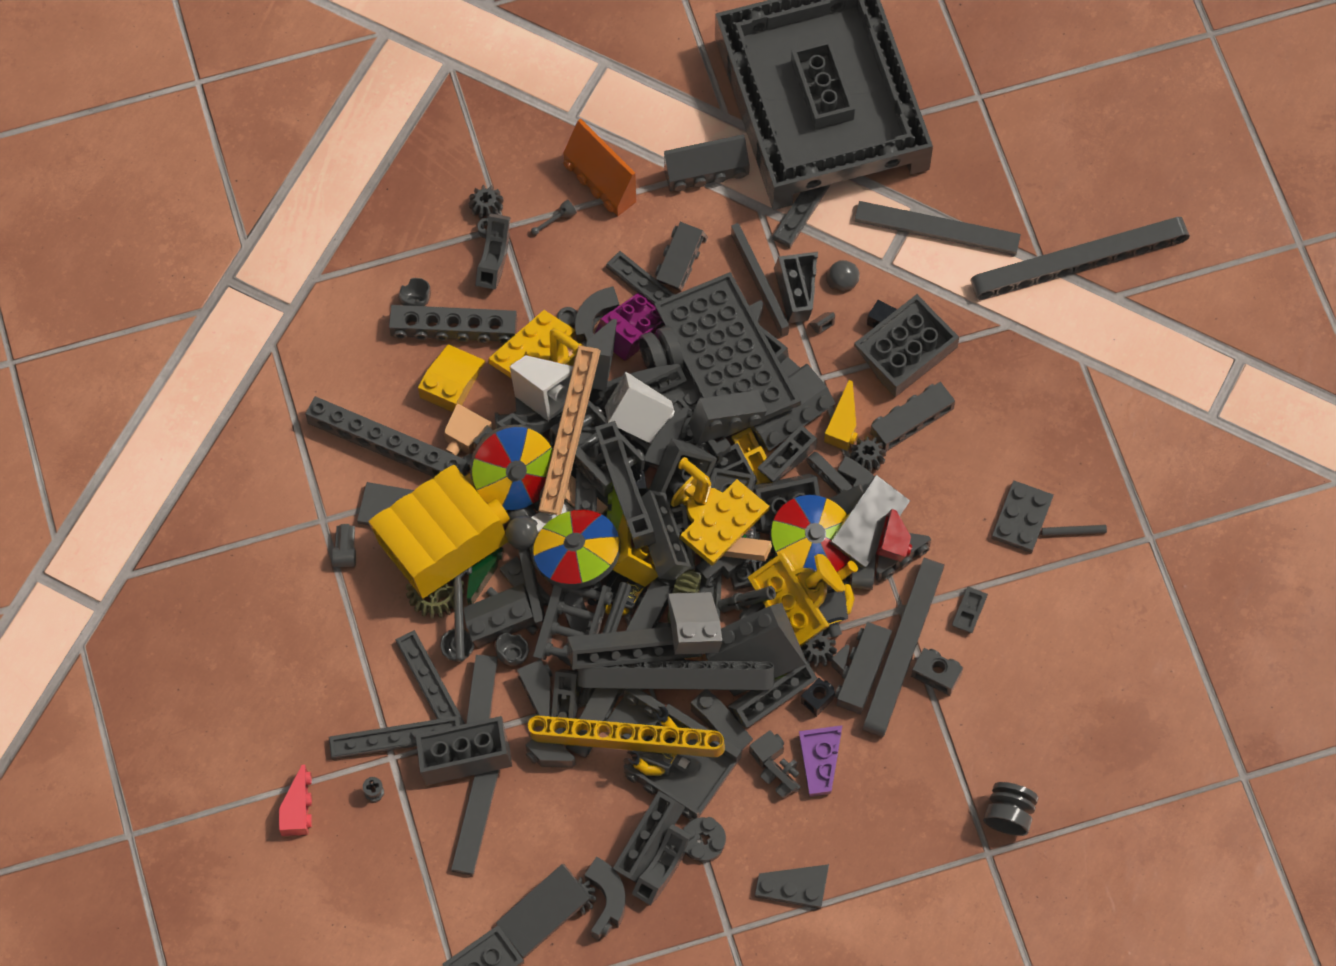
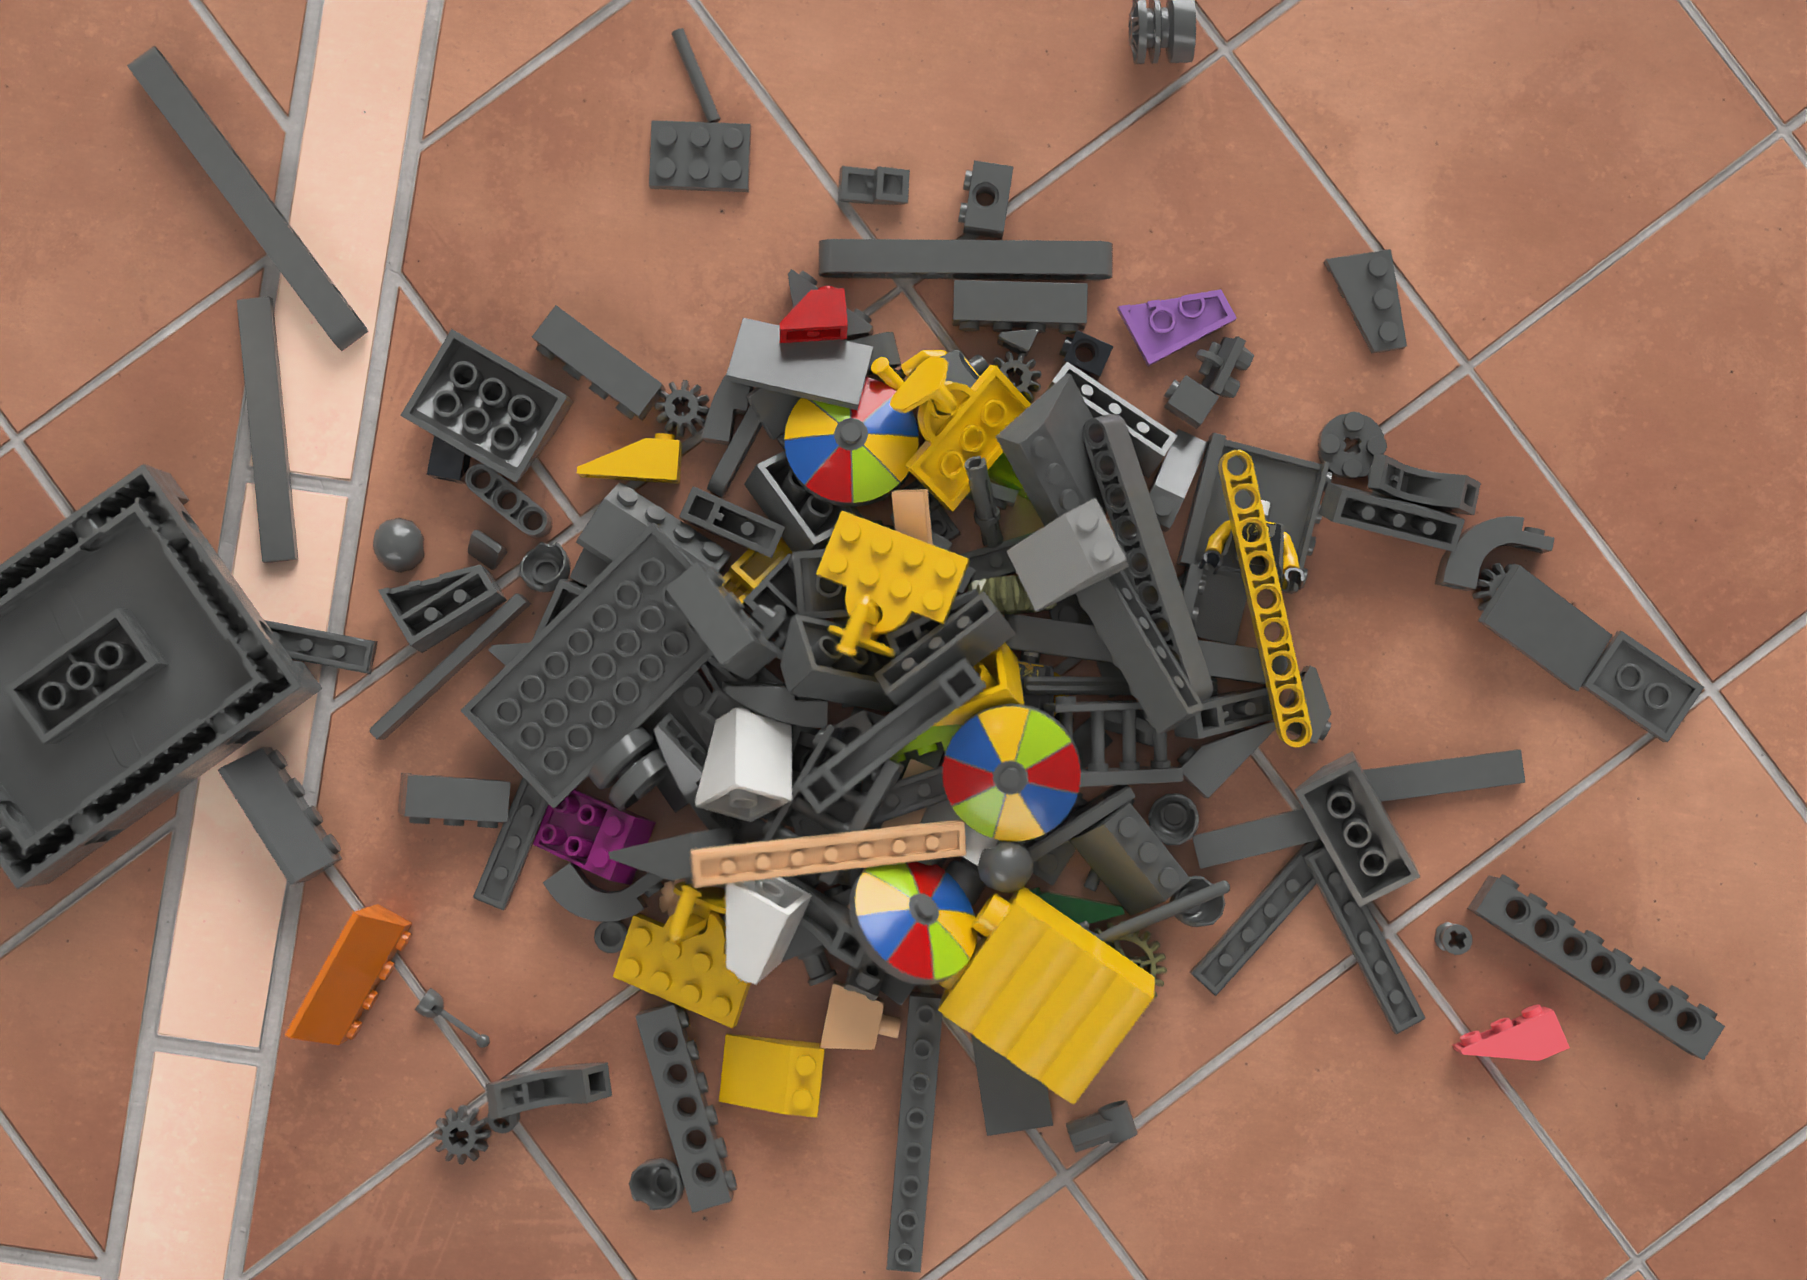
camera: 115 degrees left, 20 degrees up
(381, 818) = (1694, 1037): none -> dark grey brick
(799, 348) = (545, 567): none -> dark grey hair
(838, 347) = (497, 490): none -> dark grey beam

